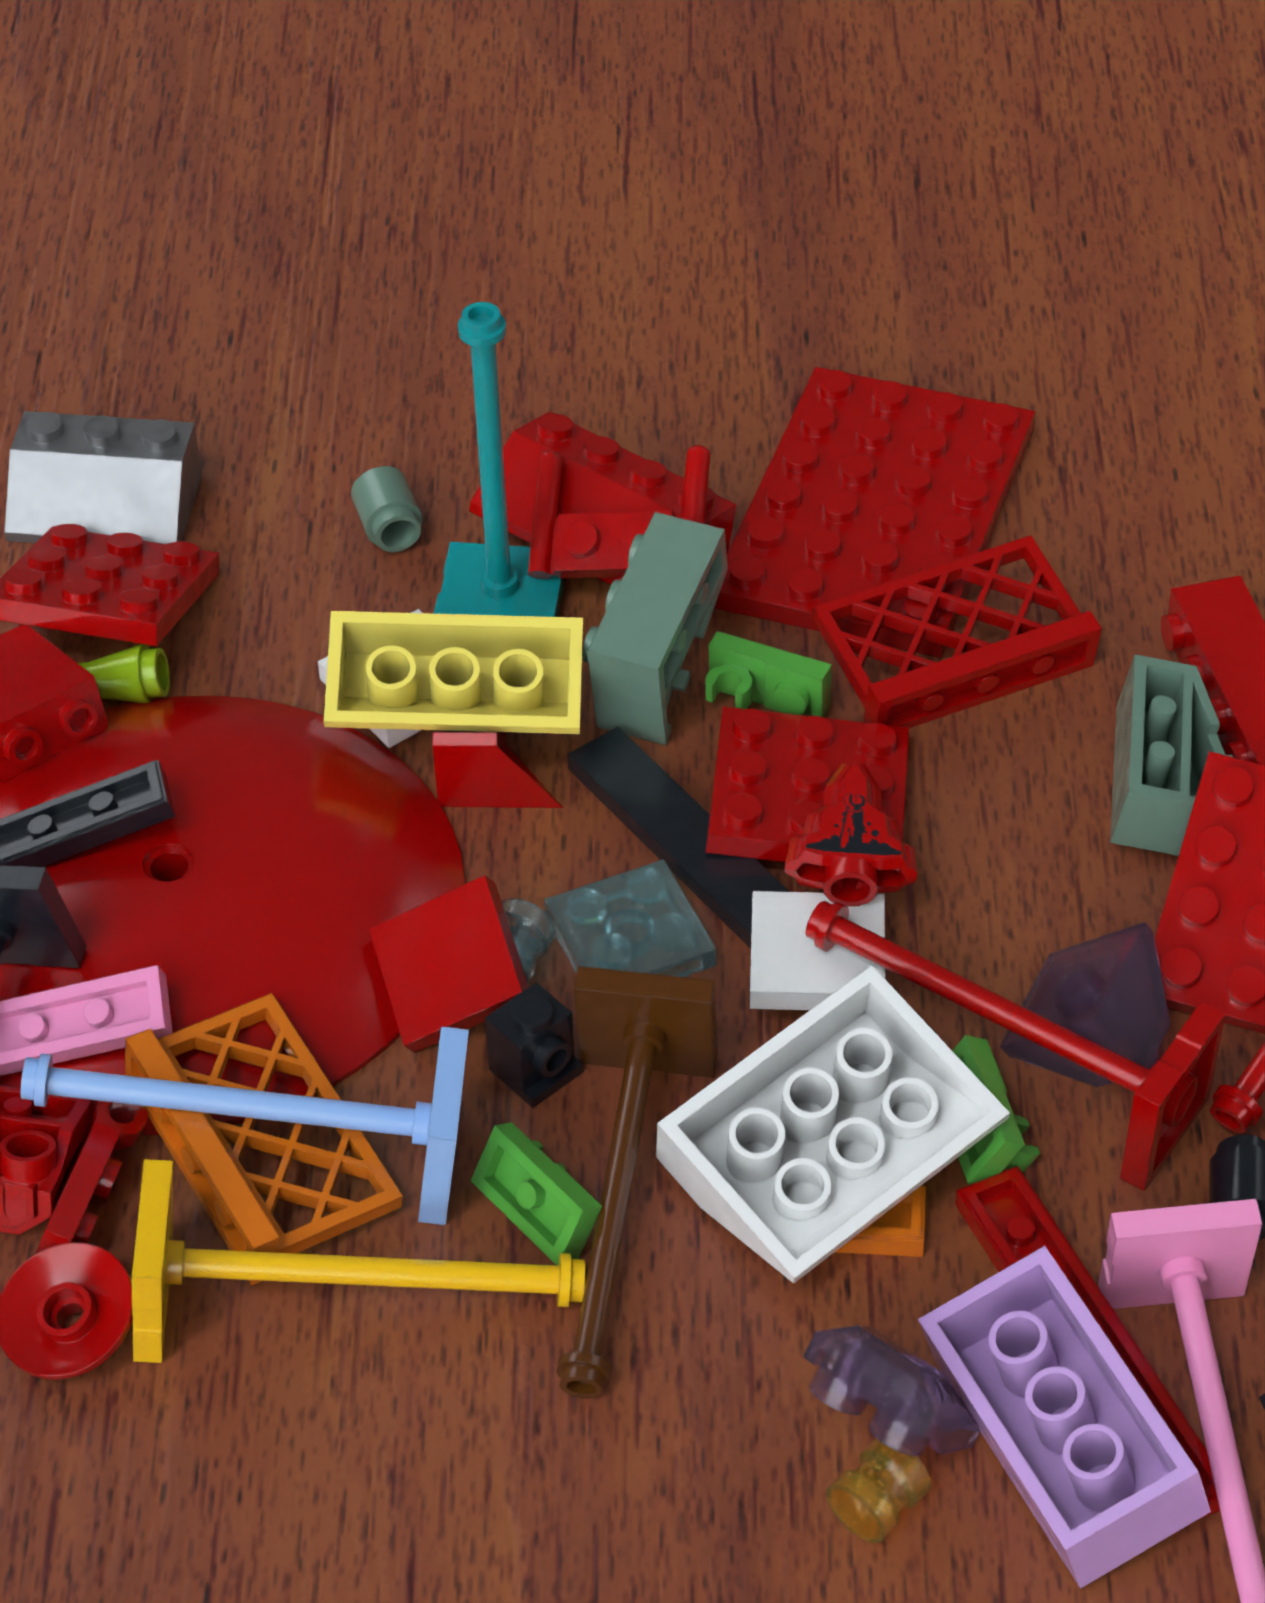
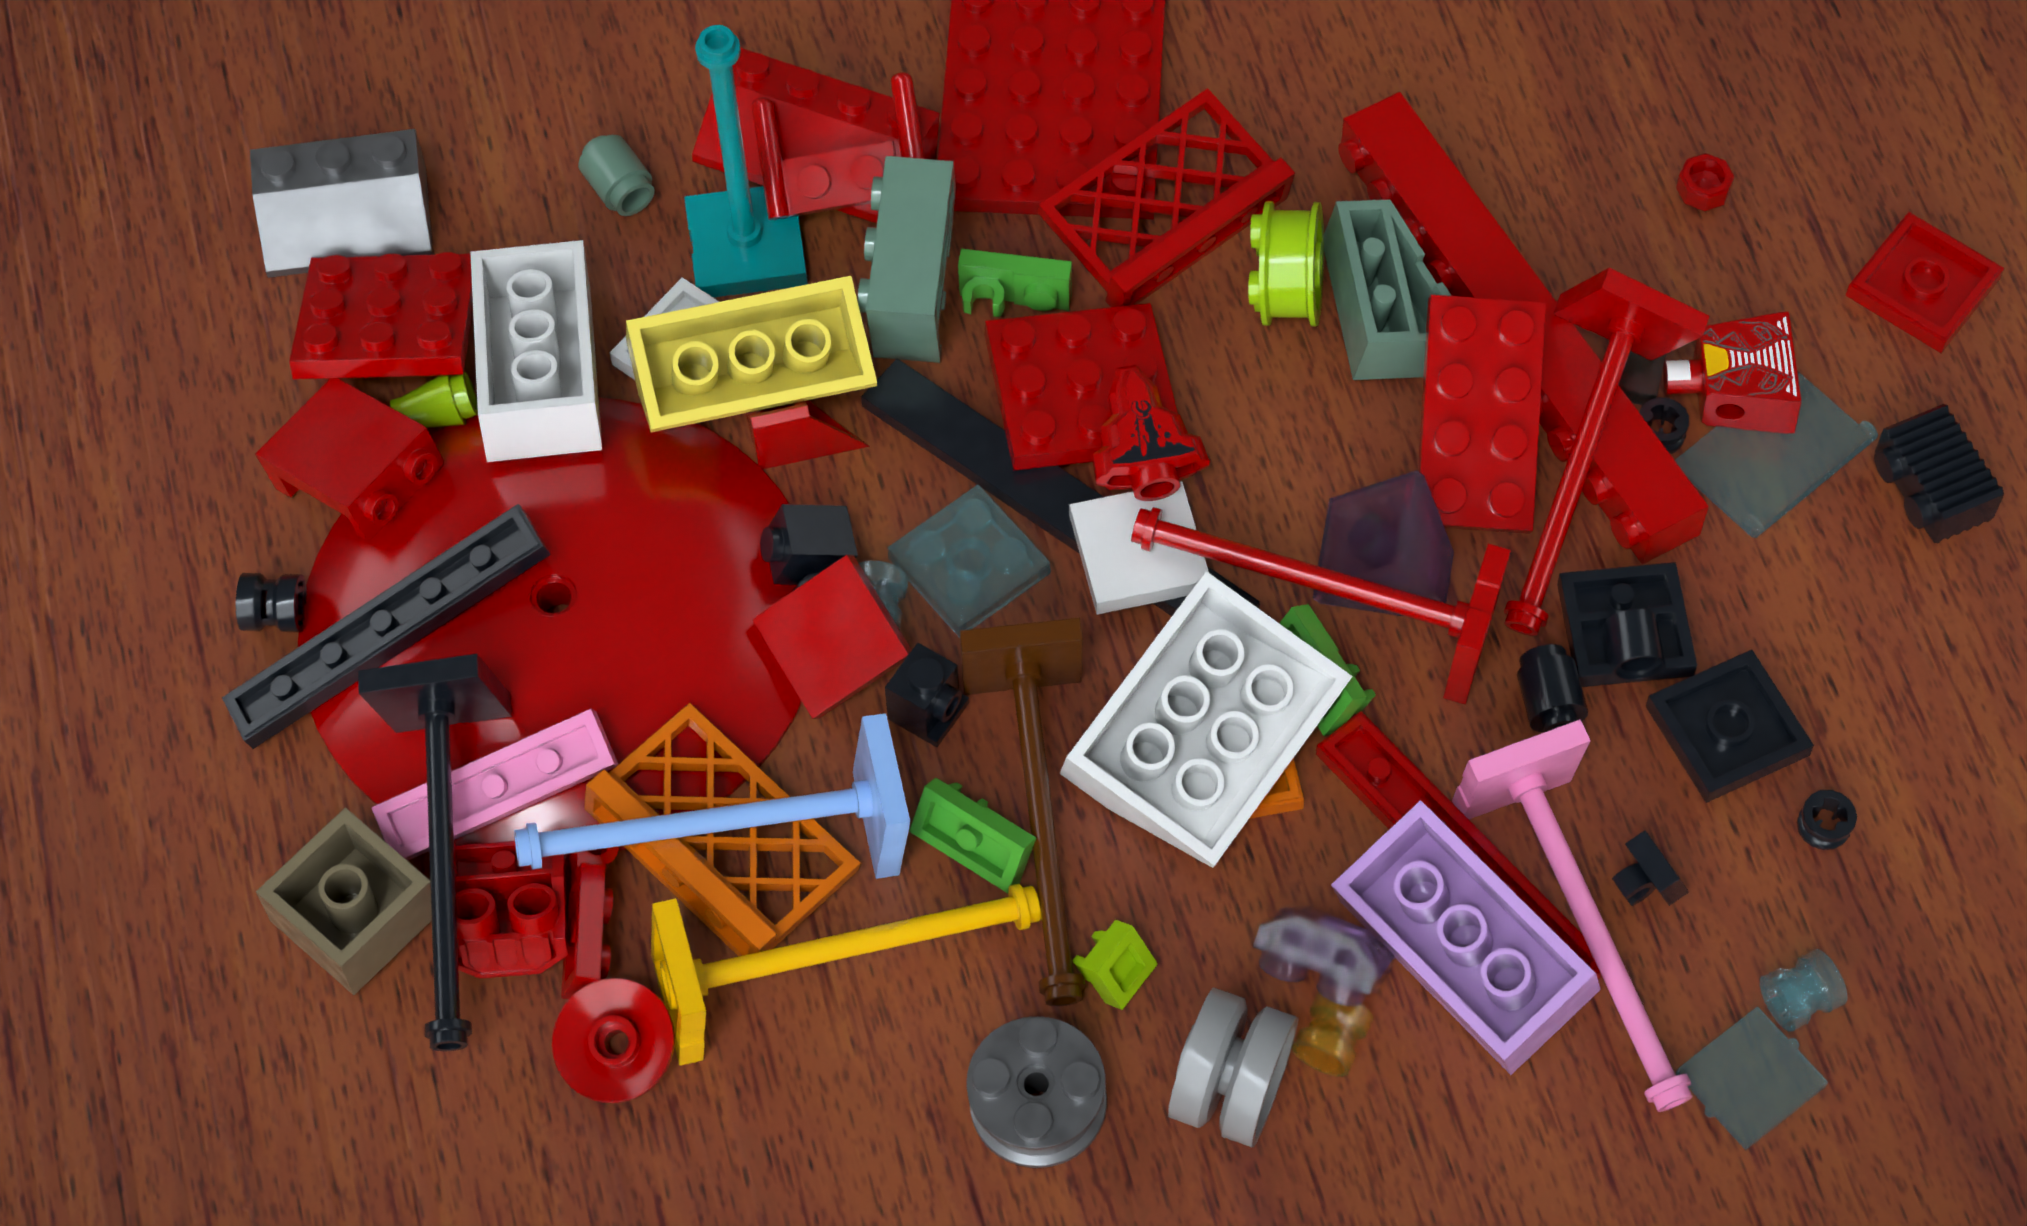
camera: 15 degrees left, 15 degrees up
(236, 638) = (535, 351): none -> white brick
(452, 859) = (806, 541): none -> black brick
(515, 1472) = (1030, 1058): none -> flat silver wheel
(653, 1361) = (1117, 964): none -> lime tile
(743, 1487) = (1223, 1063): none -> light grey wheel
(1067, 709) = (1289, 263): none -> lime wheel

